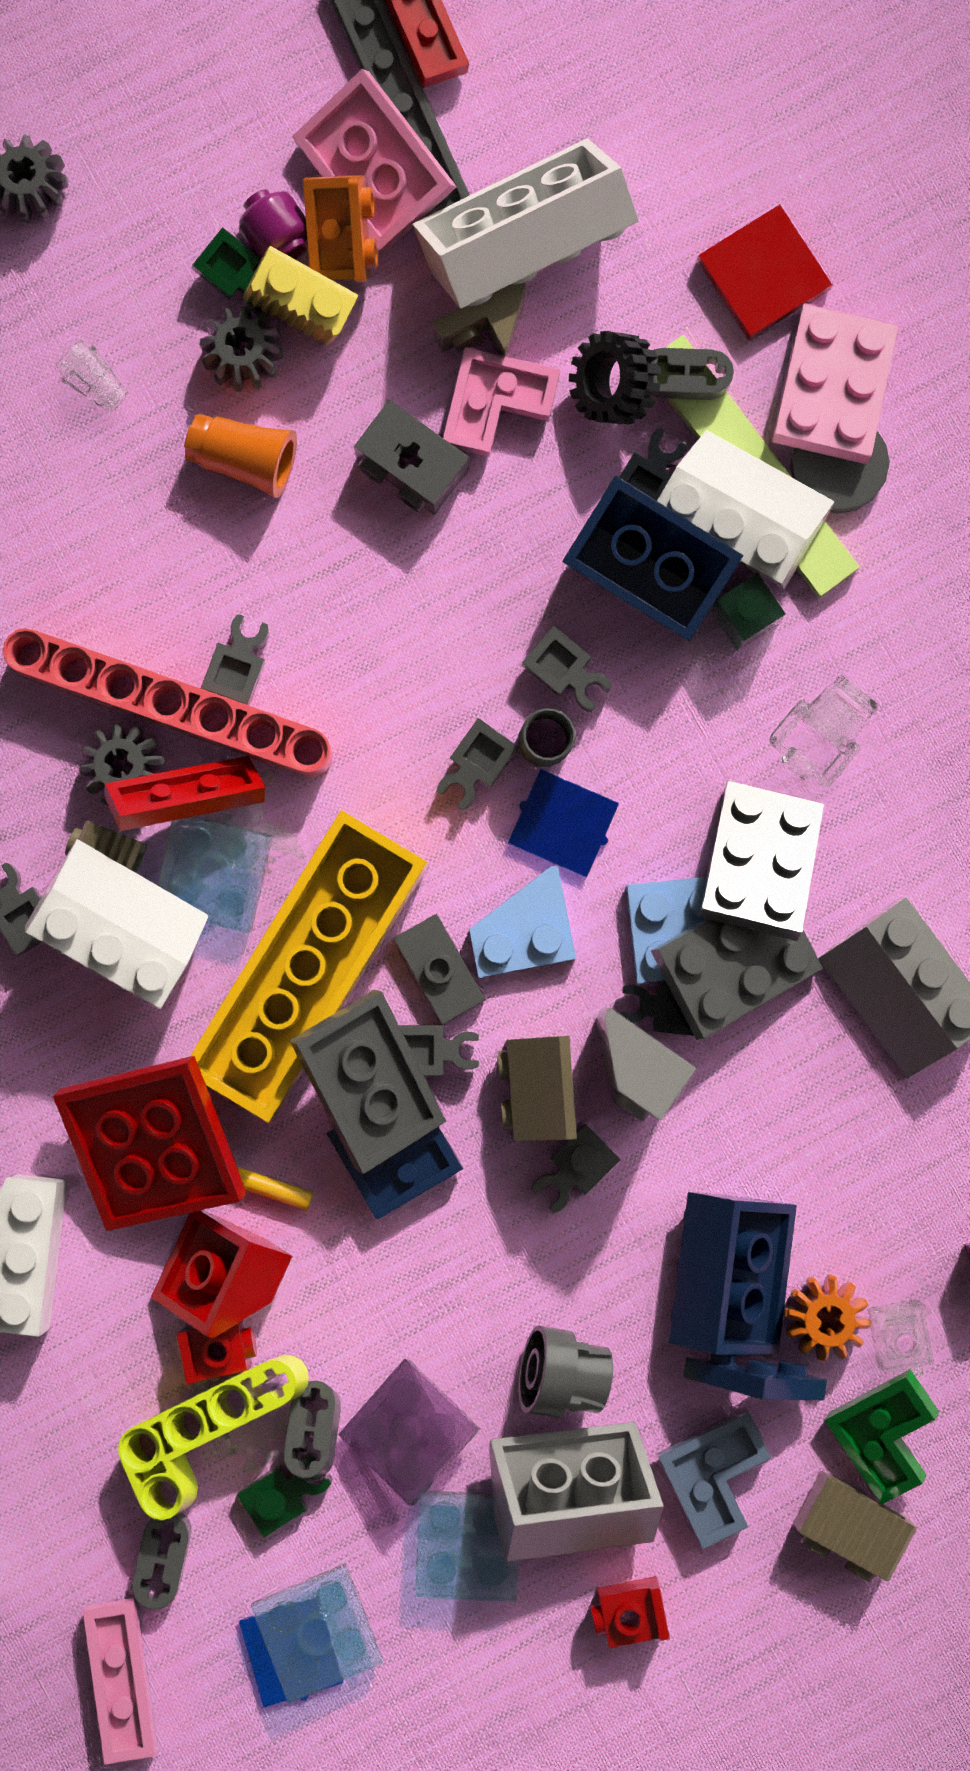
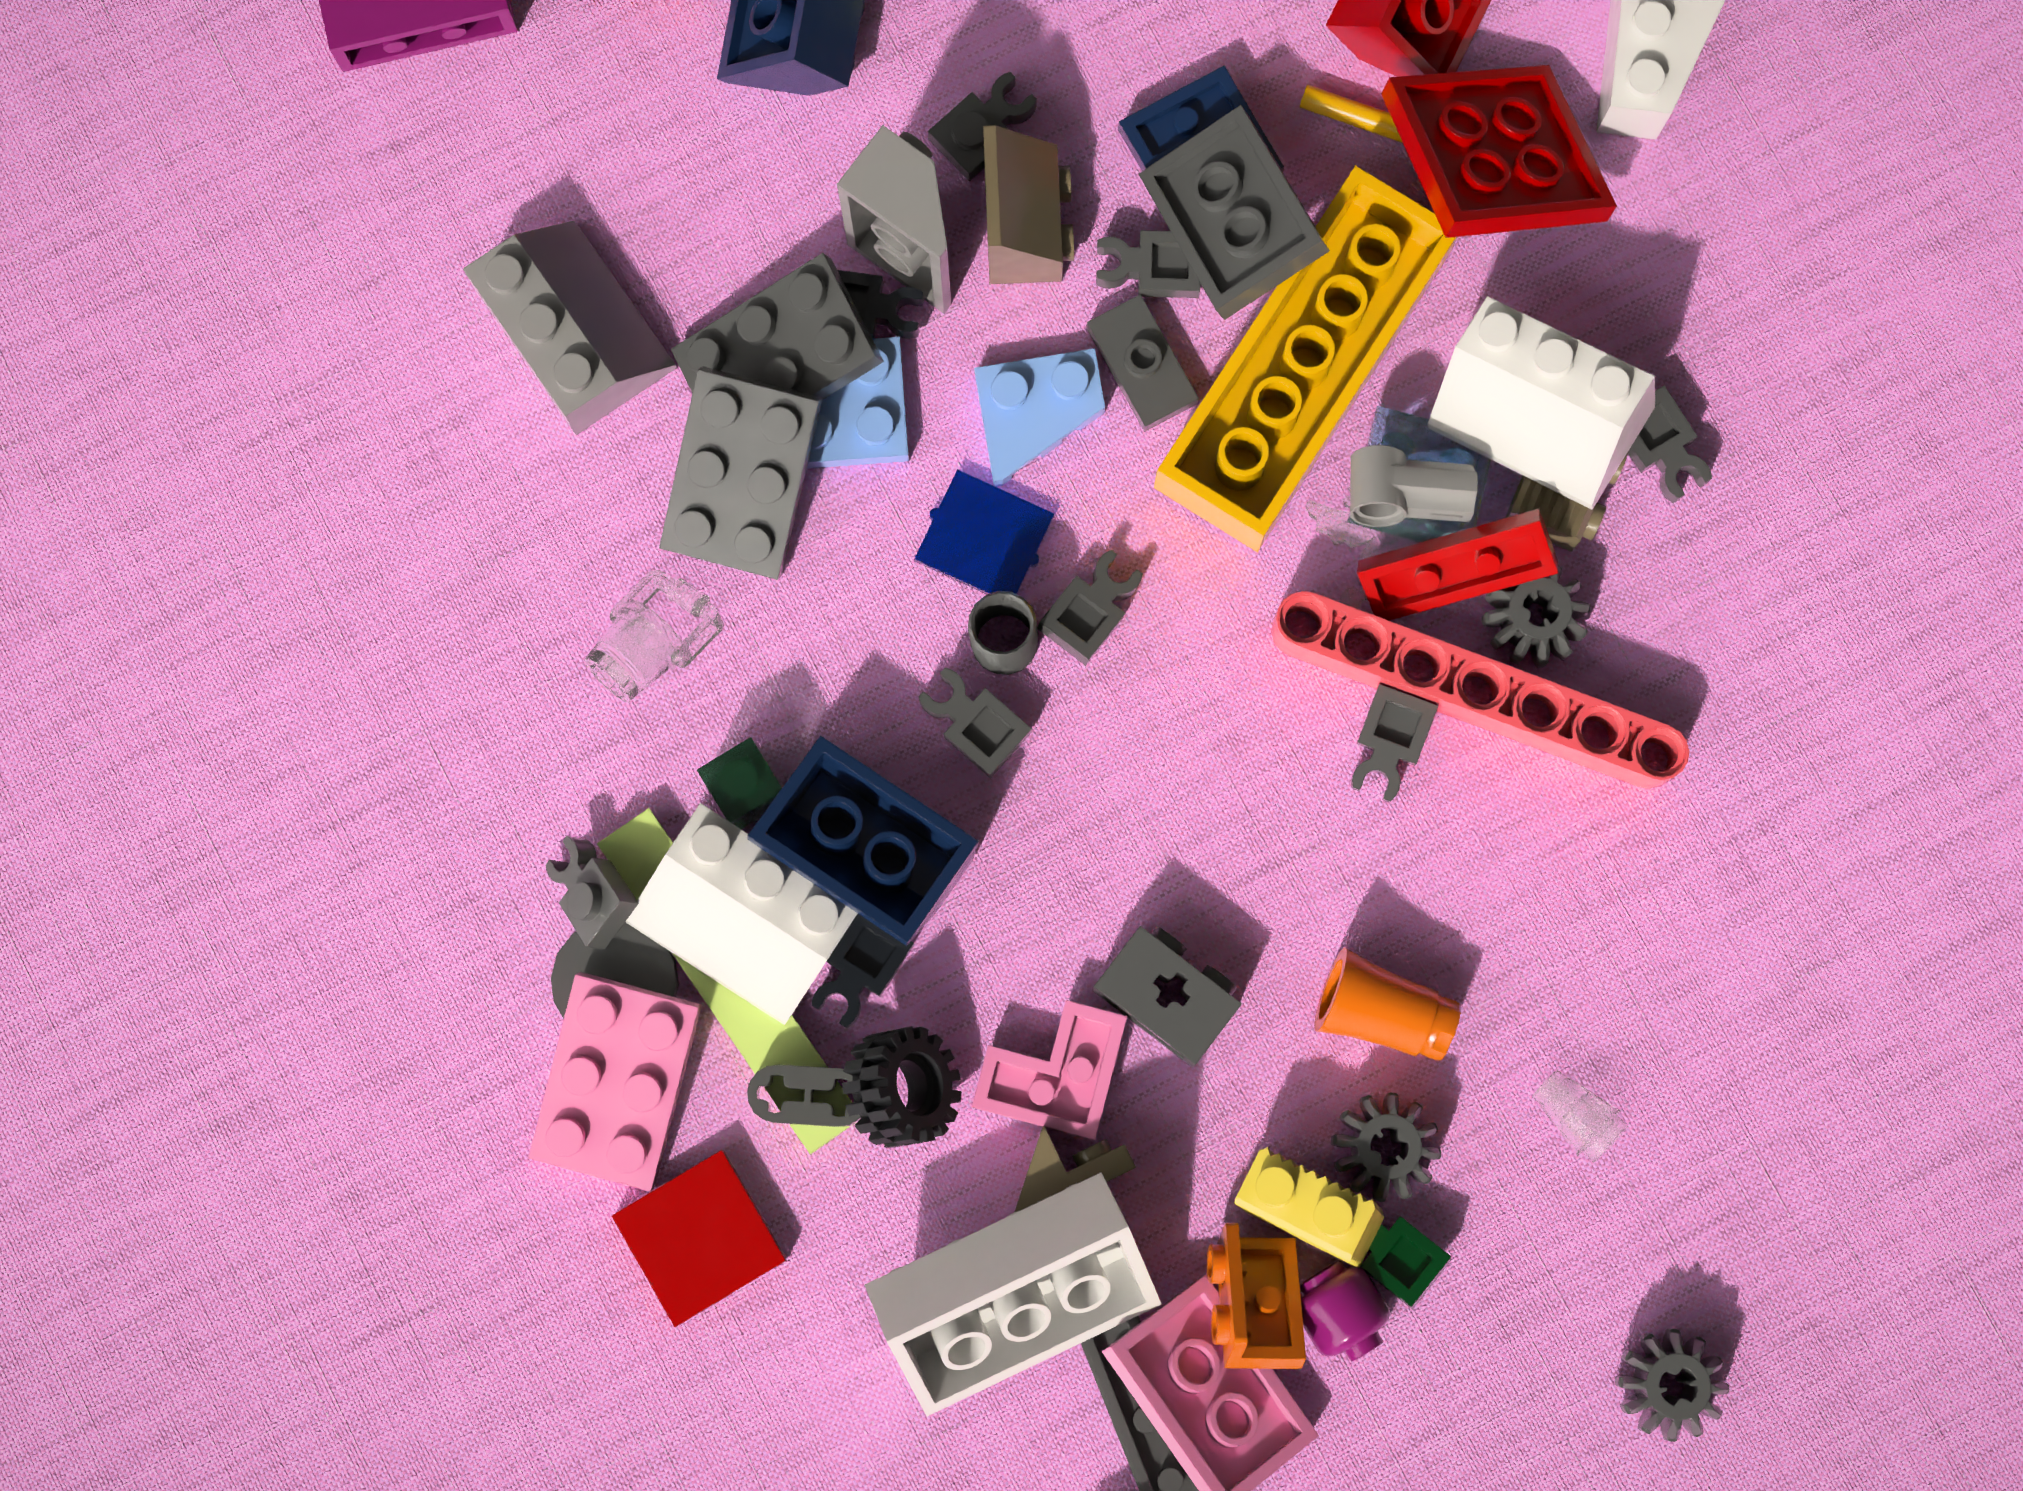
camera: 175 degrees left, 5 degrees down
(237, 852) = (1390, 488): none -> light grey piece
(859, 523) = (596, 894): none -> dark grey plate

